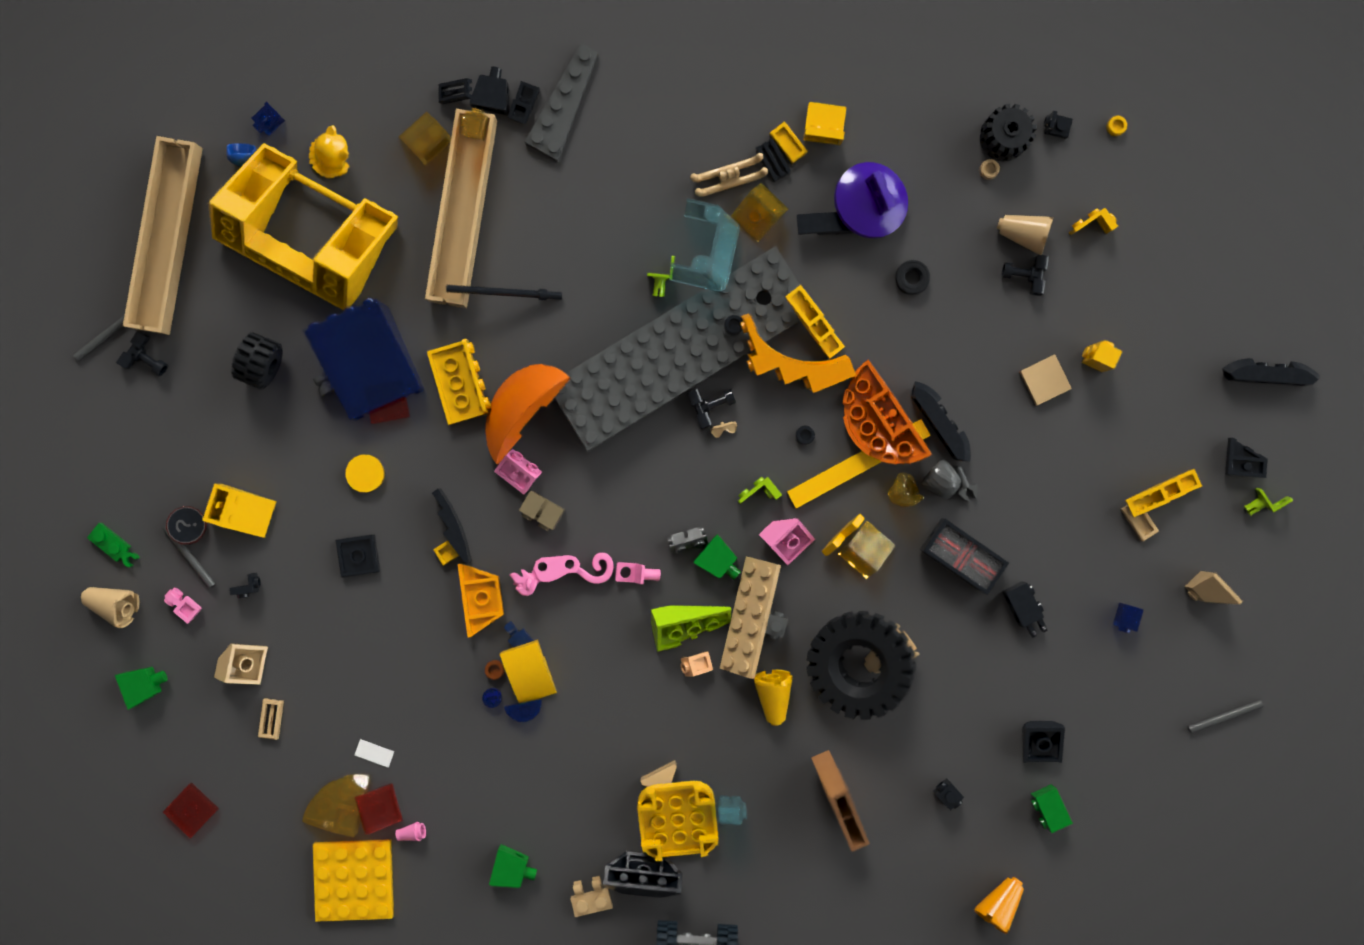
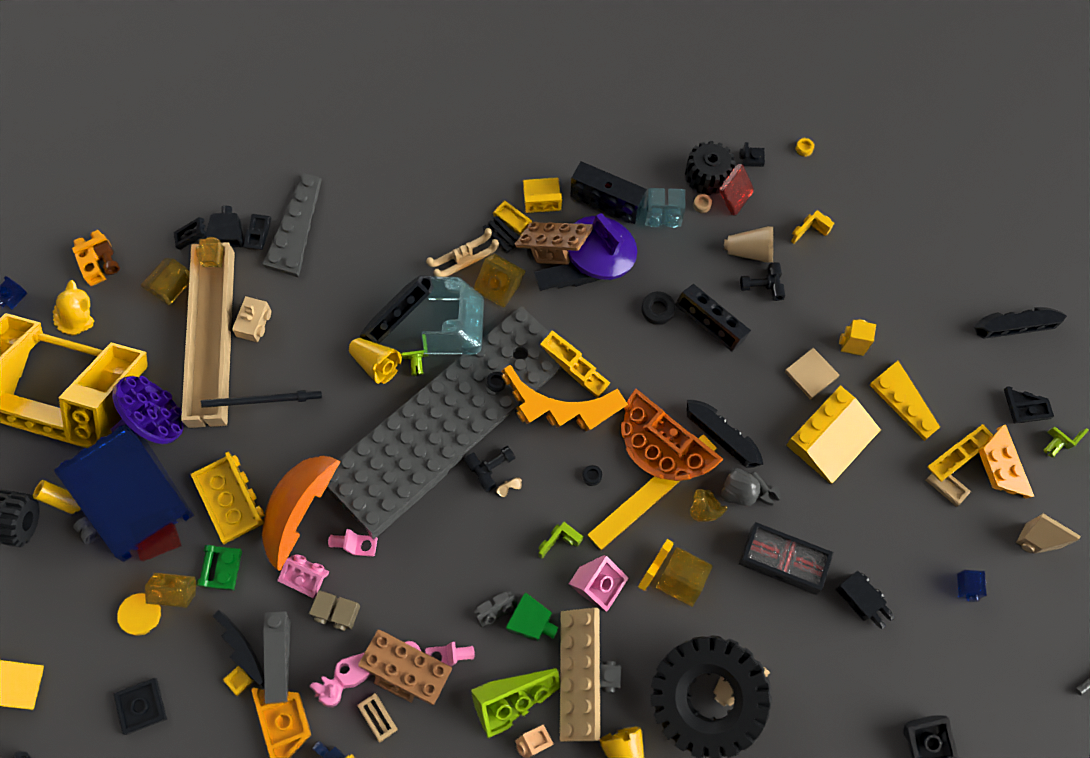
camera: 15 degrees left, 20 degrees down
(298, 347) = (56, 497): none -> yellow brick
(352, 92) = (92, 251): none -> light orange hips
(394, 283) = (147, 410): none -> dark purple bracket
(396, 459) = (170, 590): none -> clear yellow brick
(448, 449) = (226, 568): none -> green plate
(483, 541) = (276, 656): none -> dark grey slope
(505, 202) = (252, 319): none -> tan brick
(557, 615) = (387, 733): none -> tan tile
(567, 451) = (352, 543): none -> bright pink bracket
(596, 577) = (404, 669): none -> medium nougat bracket
(619, 272) = (375, 359): none -> yellow cone
(651, 226) = (397, 309): none -> black brick
(825, 182) = (552, 240): none -> medium nougat bracket
(893, 139) = (607, 192): none -> black brick
(943, 172) = (658, 213): none -> clear light blue piece
(963, 301) = (712, 317): none -> black brick
(1028, 164) = (736, 189): none -> clear red tile
(1047, 447) = (834, 435): none -> yellow slope
(1126, 423) = (902, 396): none -> yellow wing
(1199, 513) = (1004, 464): none -> light orange wing

